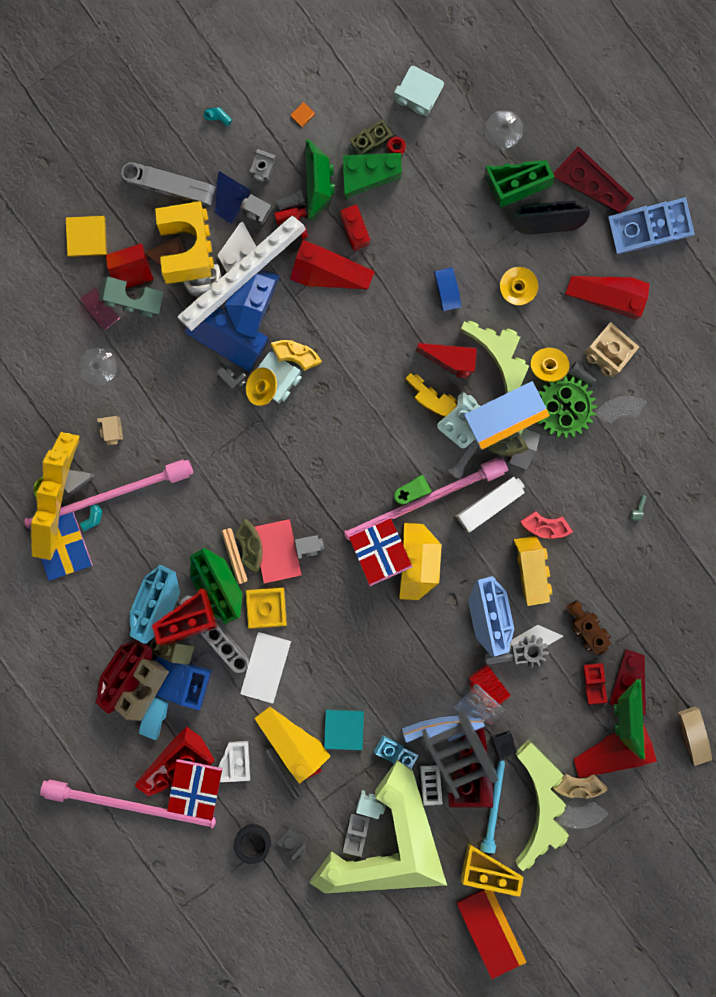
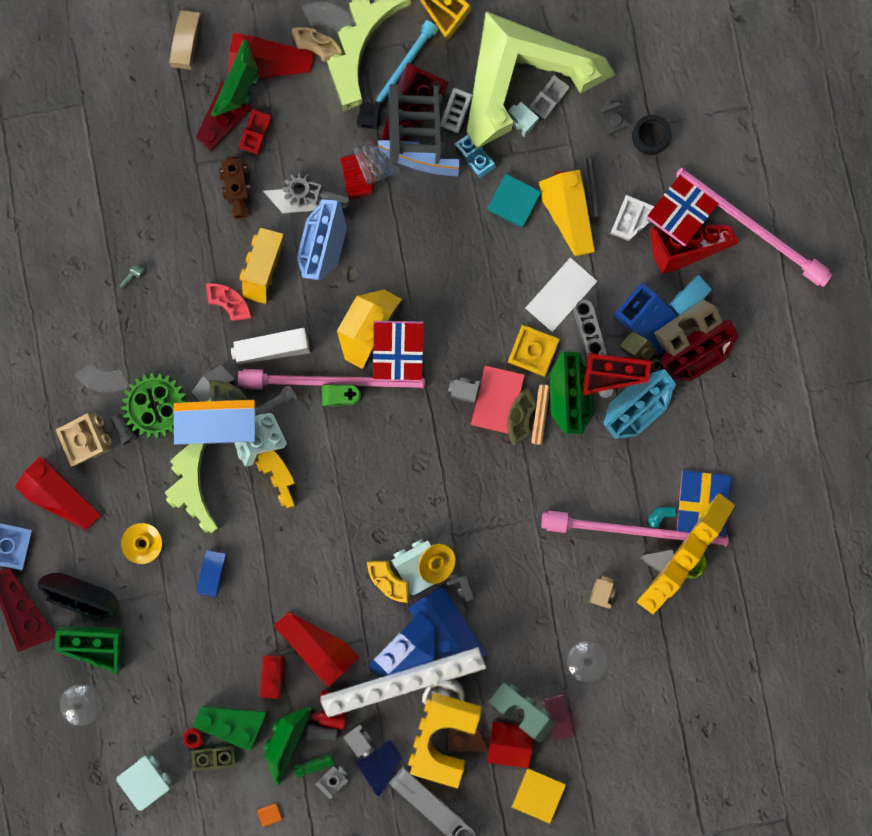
camera: 155 degrees left, 5 degrees down
(236, 248) = (396, 711): white wing -> none
(285, 171) = (314, 765): none -> green axle
(451, 358) = (238, 500): red slope -> none
(549, 358) = (145, 460): yellow dish -> none

